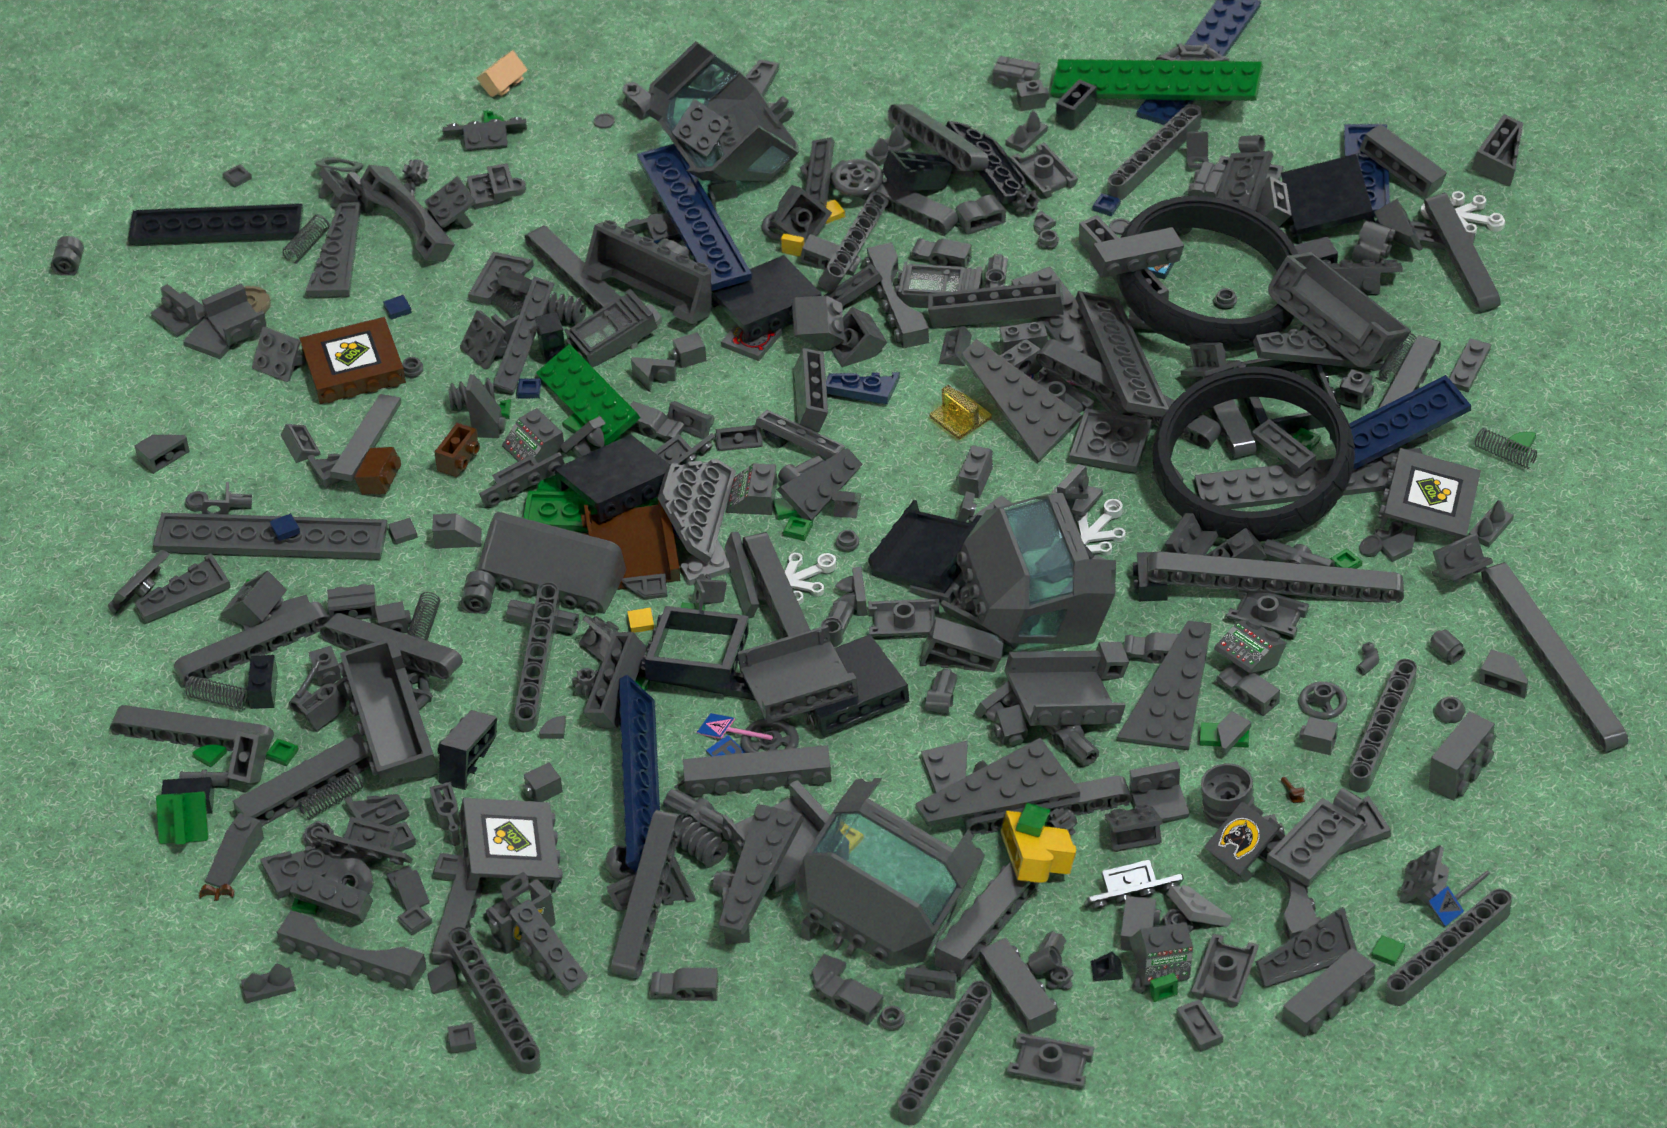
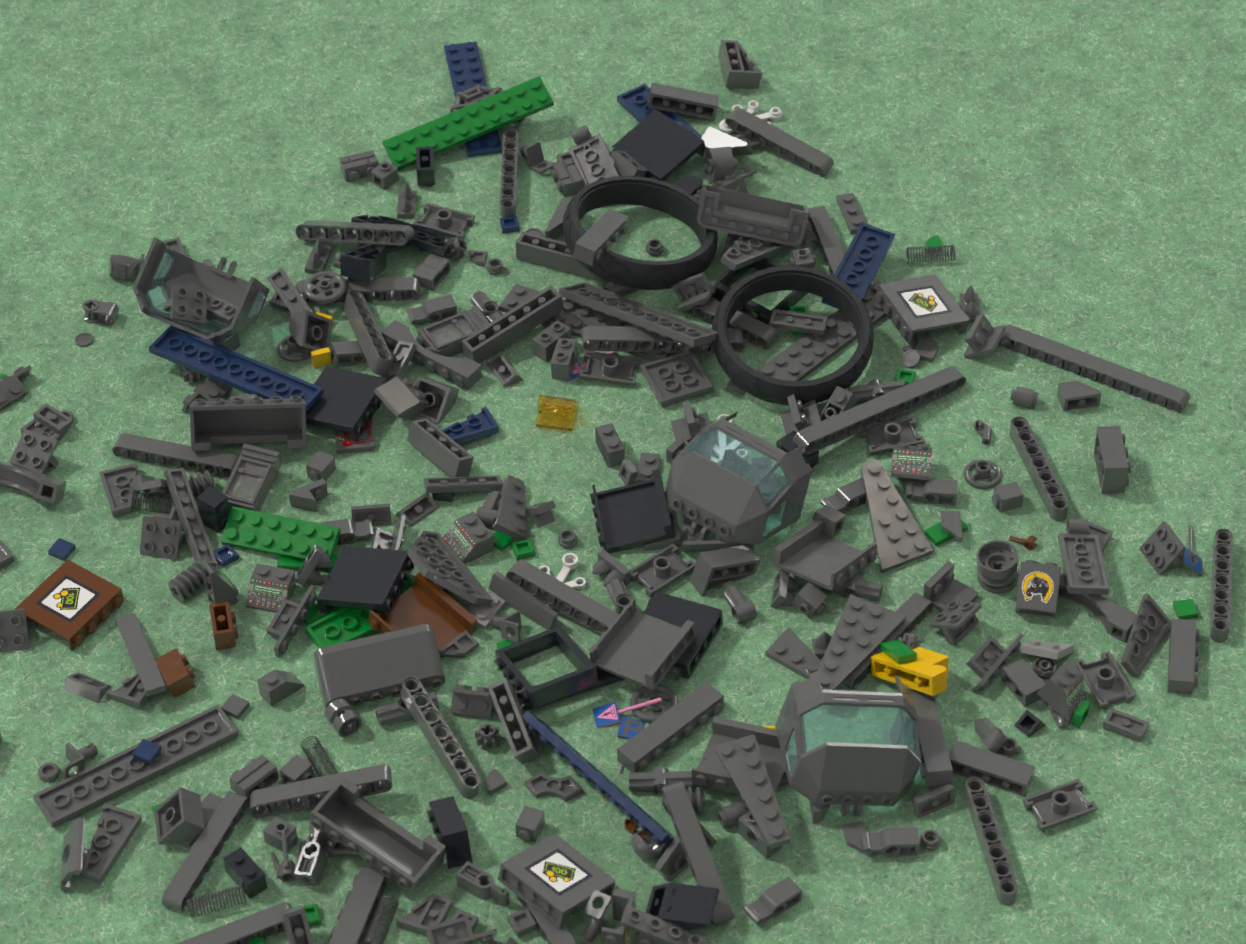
camera: 40 degrees left, 0 degrees up
(412, 366) = (122, 583): dark grey plate -> none
(588, 933) = (683, 904): none -> black slope
(594, 757) = (563, 788): none -> dark grey tile
(640, 620) = (478, 672): yellow tile -> none
(1025, 404) = (598, 381): dark grey wing -> none
(1450, 709) = (1065, 436): dark grey plate -> none

